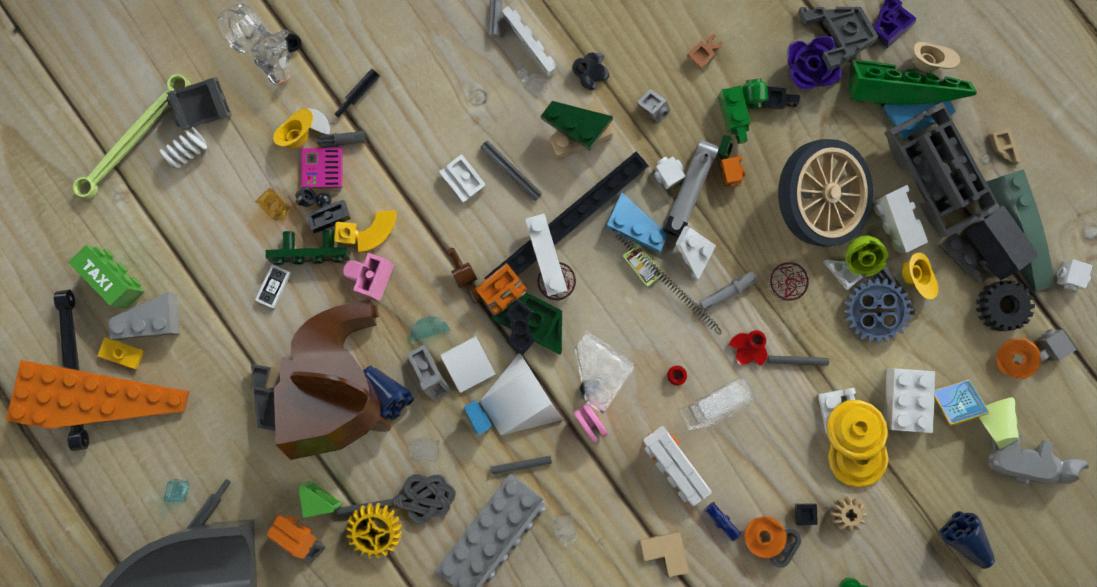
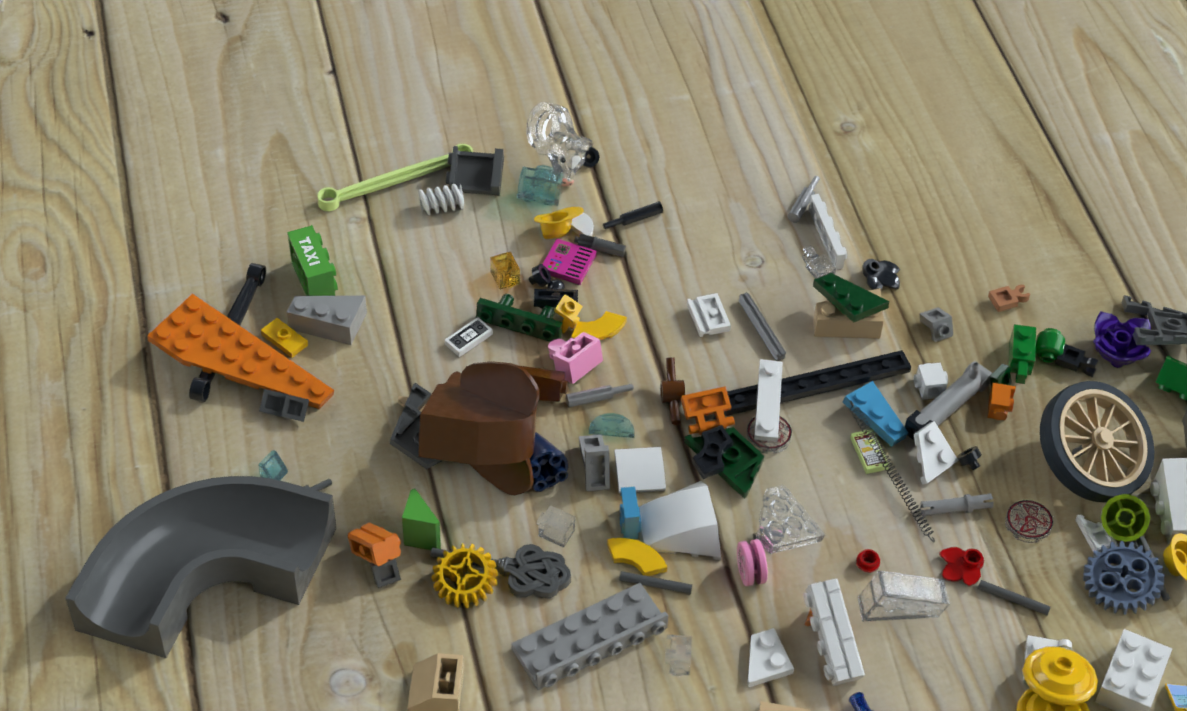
camera: 20 degrees right, 35 degrees down
(154, 425) = (284, 405): none -> dark grey slope
(262, 95) = (540, 185): none -> clear light blue brick
(403, 302) = (595, 394): none -> light grey axle
(497, 445) = (636, 554): none -> yellow tile
(630, 498) = (767, 658): none -> white wing
(724, 239) = (970, 457): none -> black tile

